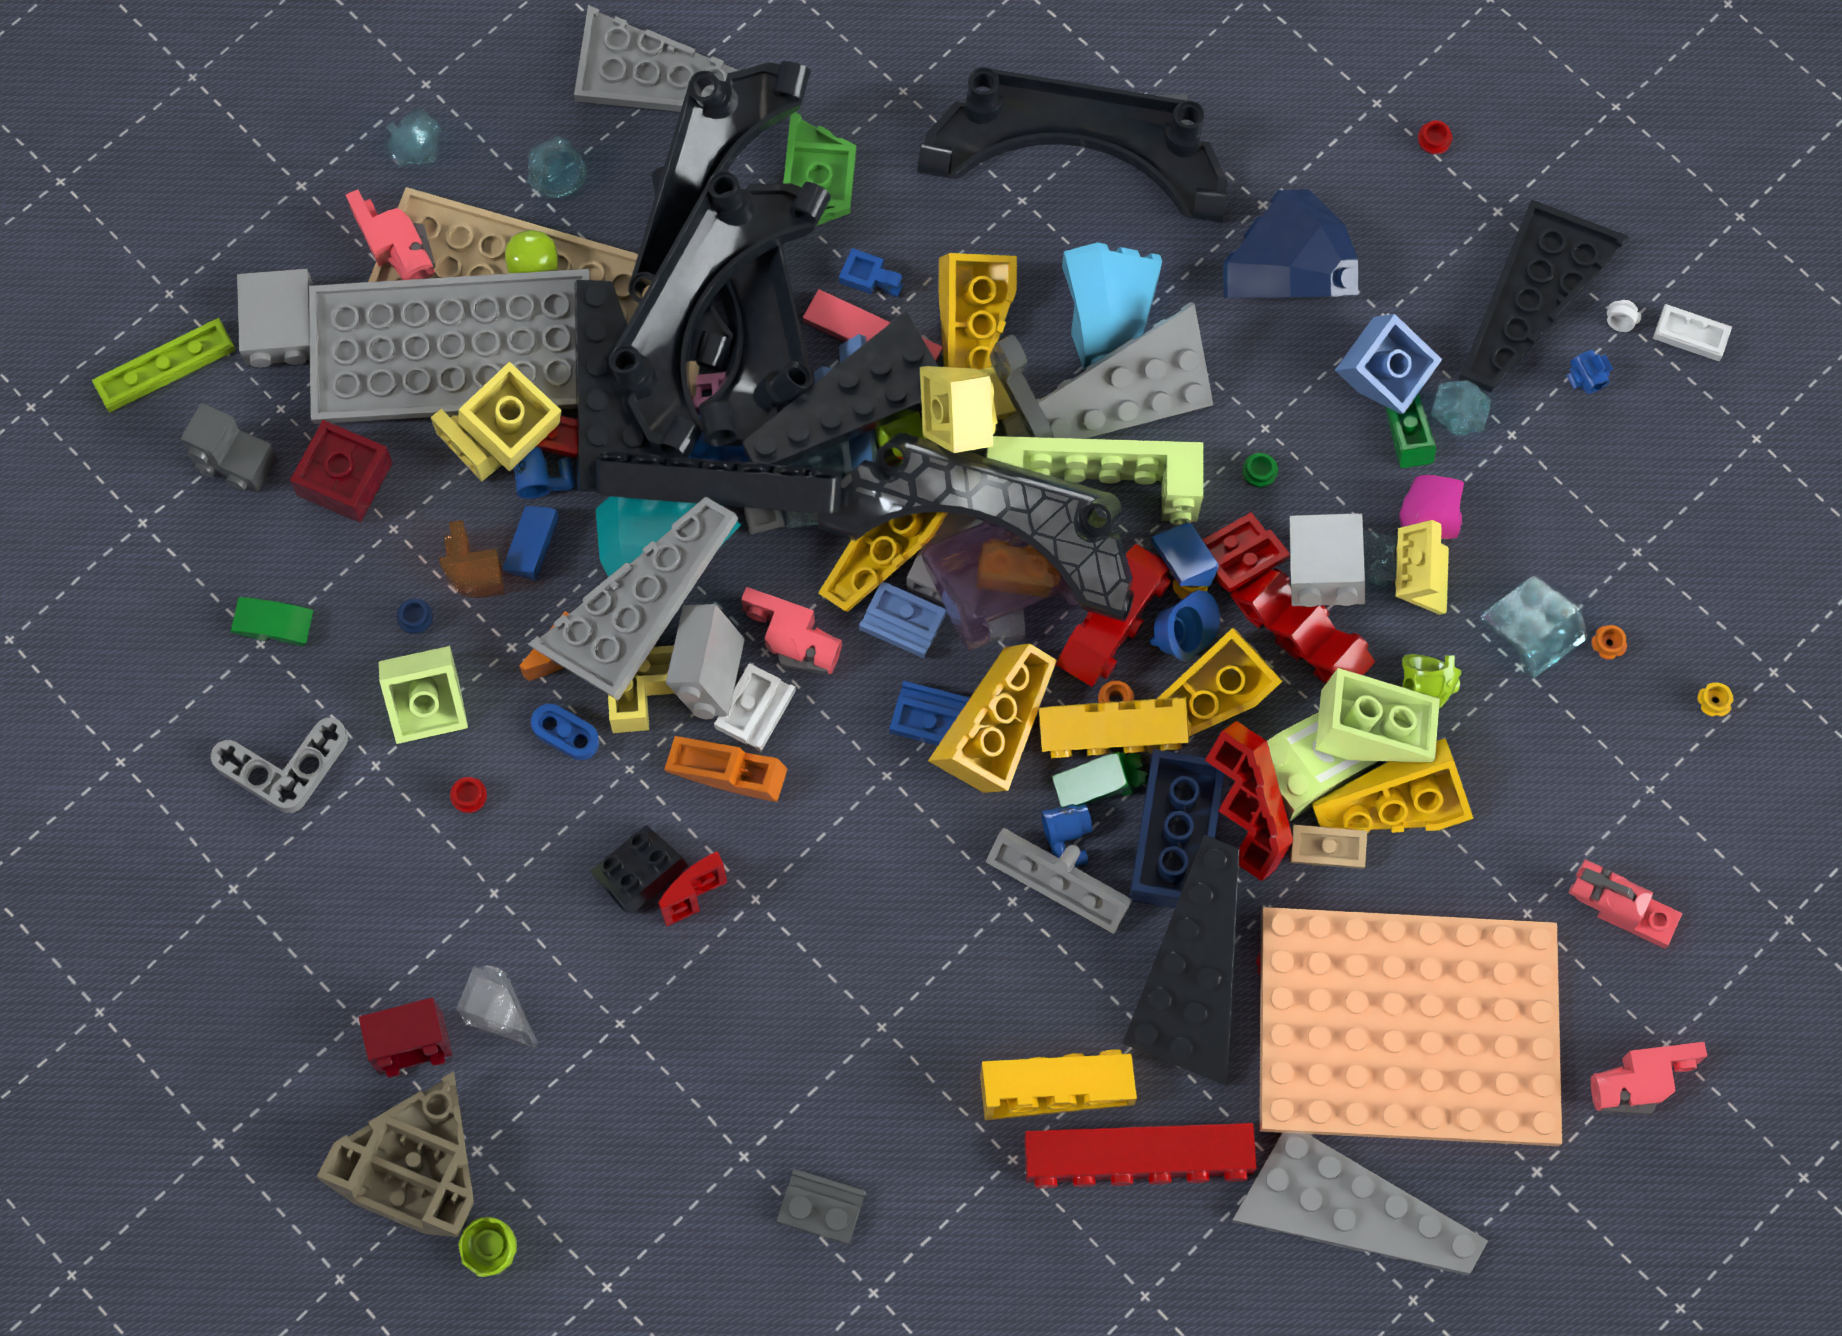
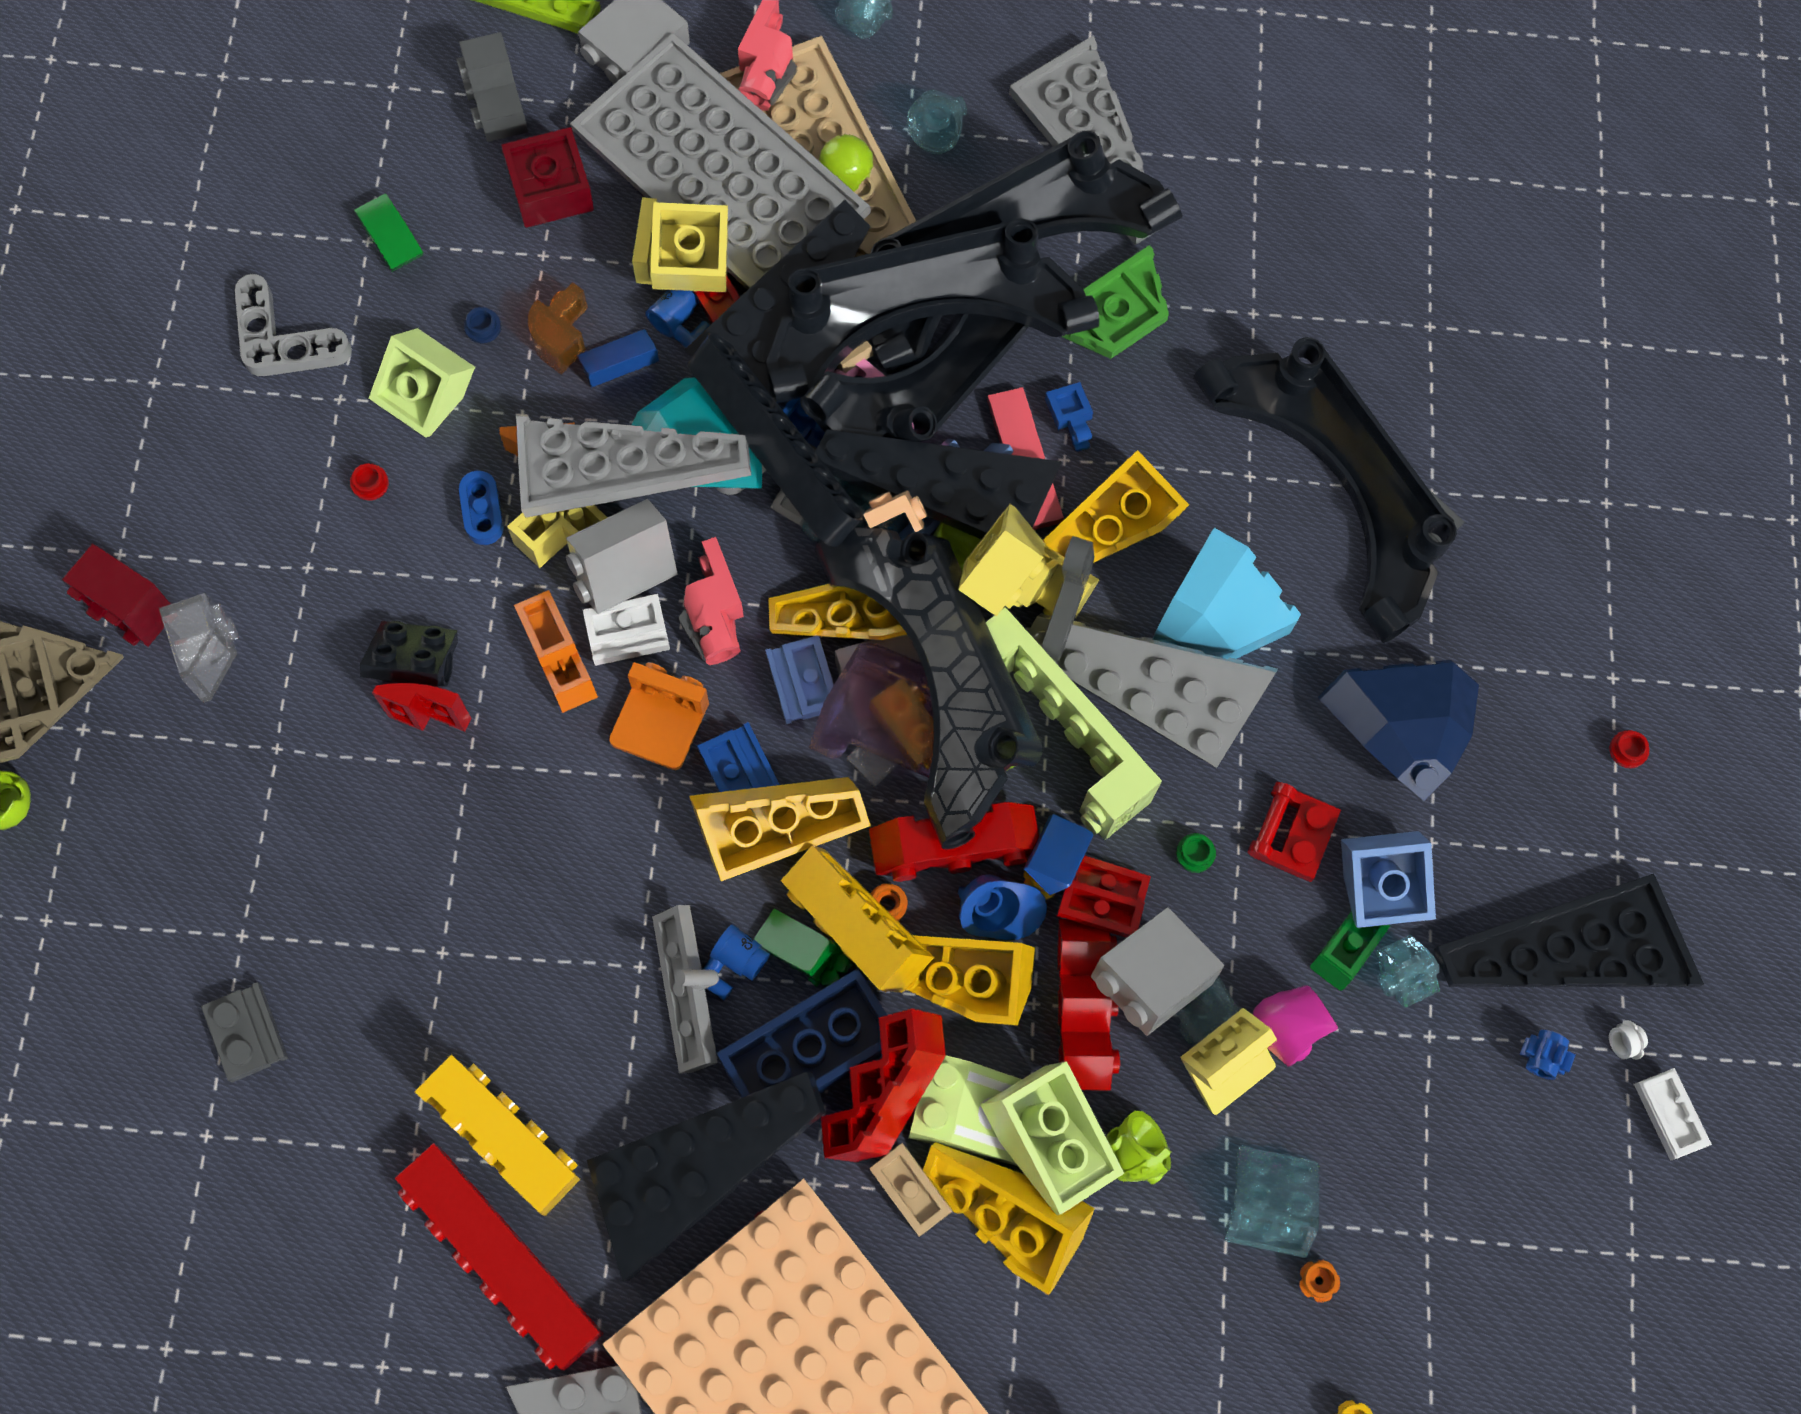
camera: 45 degrees right, 0 degrees up
(842, 737) = (659, 716): none -> orange bracket
(845, 448) = (886, 507): none -> light nougat bracket
(1311, 391) = (1306, 836): none -> red plate

